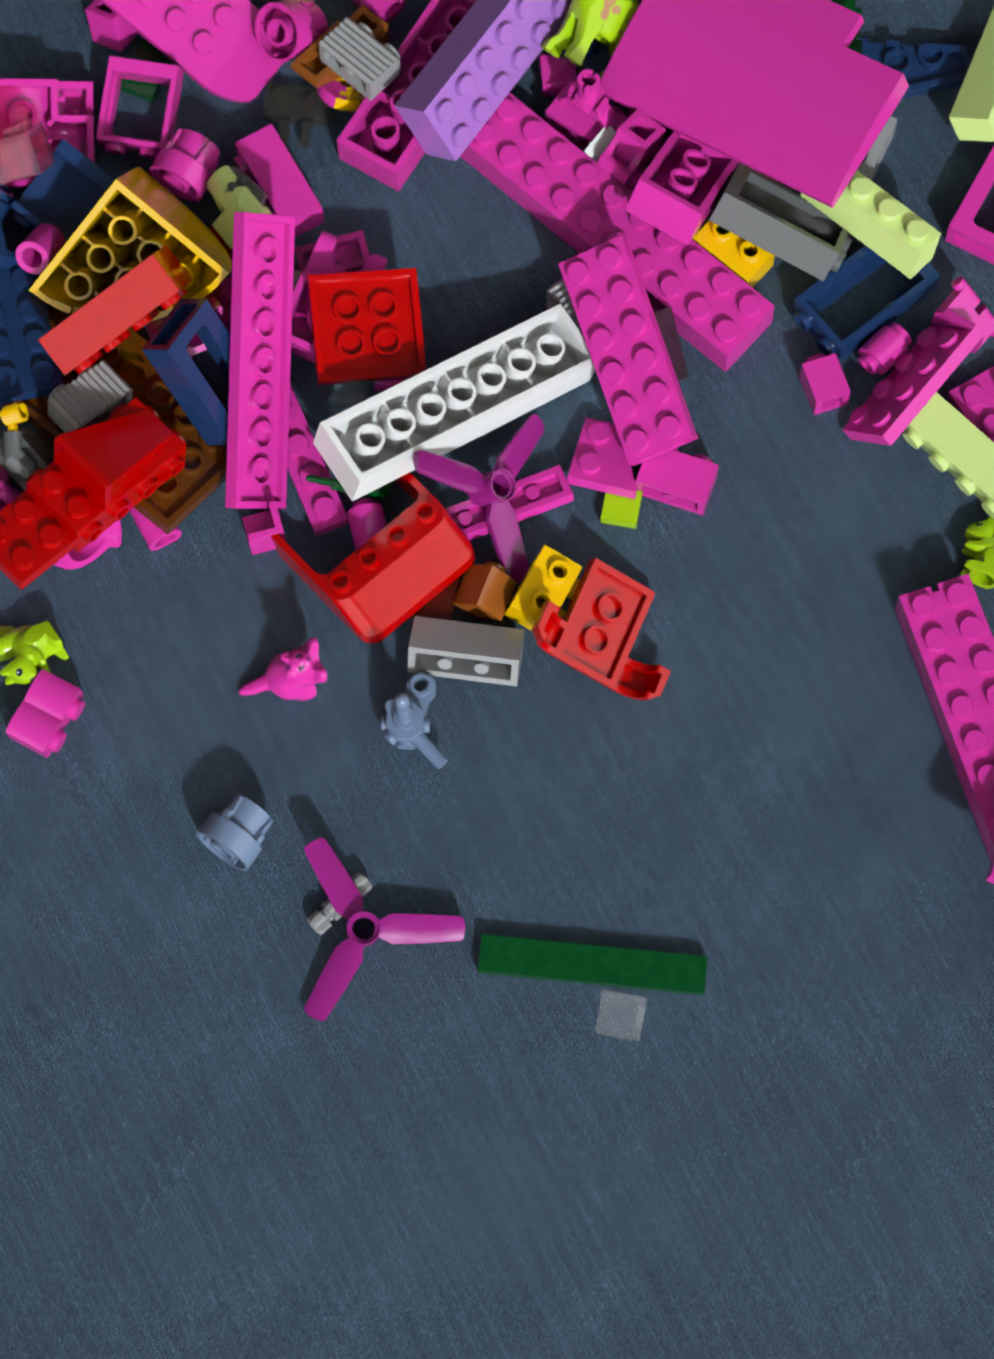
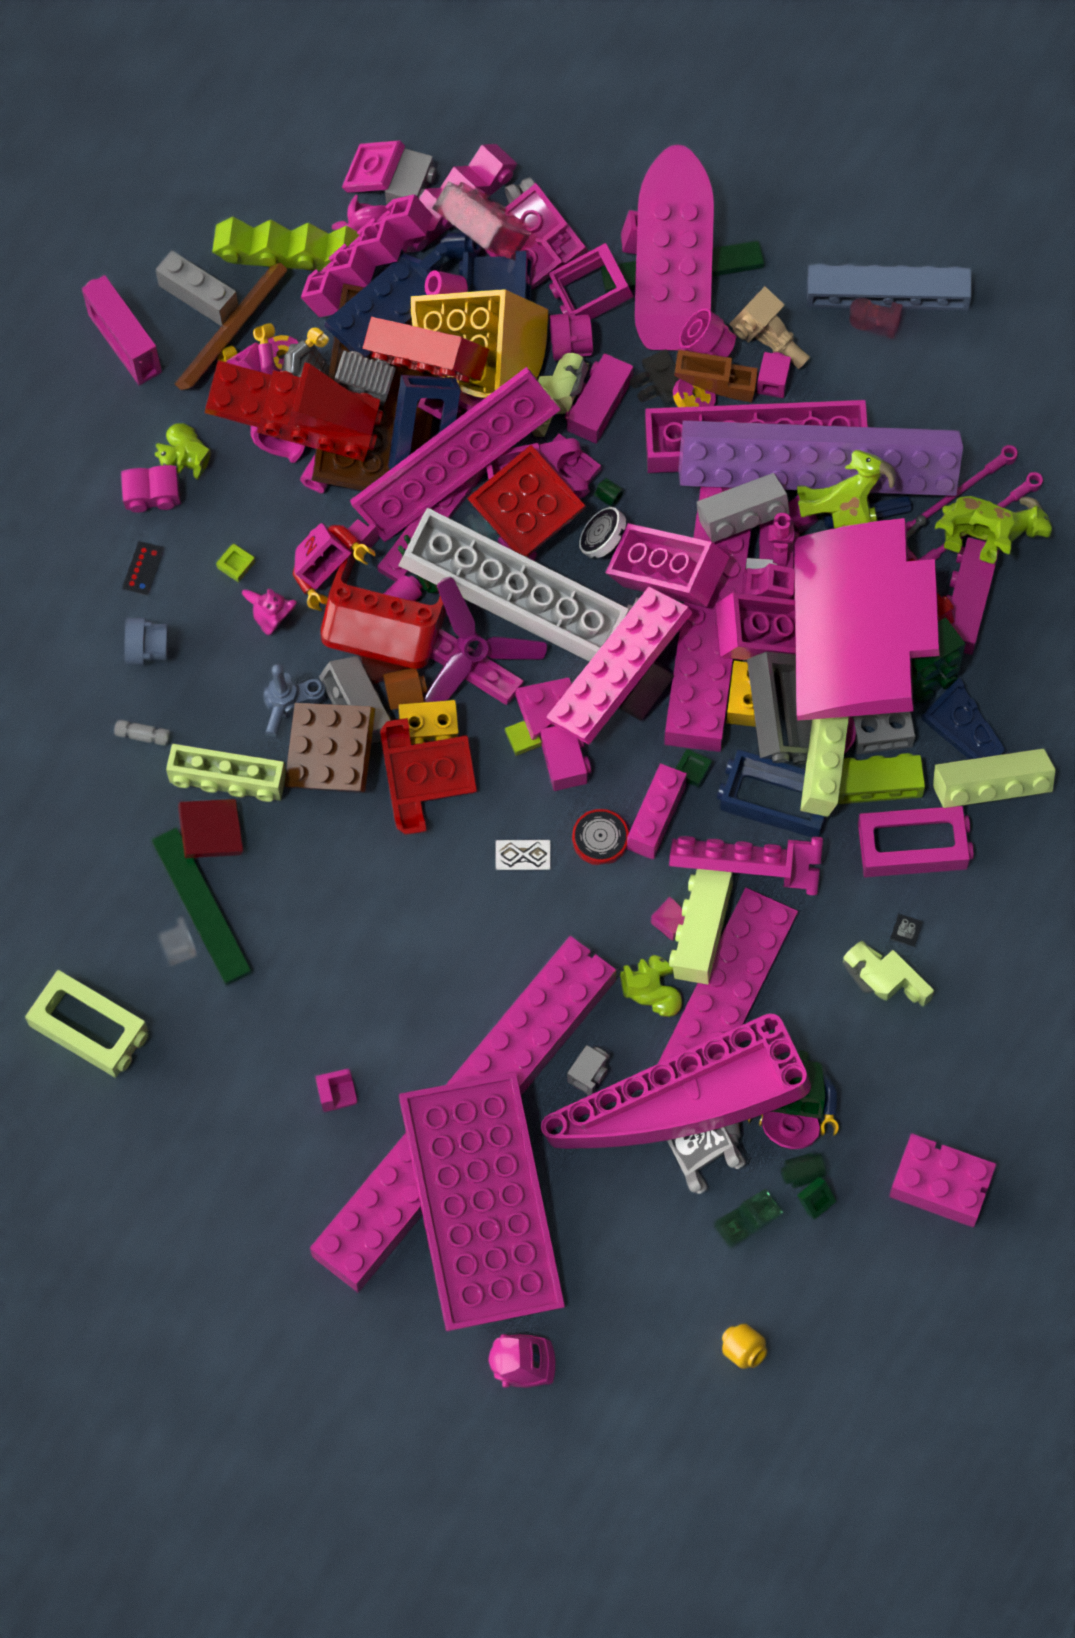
camera: 55 degrees right, 5 degrees down
(133, 783) = (143, 568): none -> black sticker
(200, 679) = (235, 562): none -> lime tile
(268, 578) = (321, 555): none -> dark pink torso
(348, 955) = (142, 735): magenta piece -> none
(360, 58) = (708, 383): light grey brick -> none
(396, 243) = (609, 492): none -> dark green hose
(445, 276) = (602, 532): none -> tile
(457, 839) = (226, 772): none -> yellowish green brick
(507, 710) = (330, 747): none -> plate
(511, 897) = (210, 828): none -> dark red tile
(533, 113) = (742, 507): none -> light grey brick
(541, 230) = (668, 563): none -> dark pink brick
(716, 1175) = (108, 1060): none -> yellowish green piece
(756, 592) = (522, 854): none -> white sticker
(777, 359) = (695, 766): none -> dark green plate
(791, 500) = (600, 837): none -> tile
(805, 424) = (656, 811): none -> dark pink brick
(824, 383) = (695, 806): dark pink brick -> none
(884, 348) = (746, 828): dark pink brick -> none
(908, 951) = (336, 1090): none -> dark pink panel
(923, 171) = (881, 779): none -> lime brick
(934, 488) = (668, 918): none -> dark pink slope

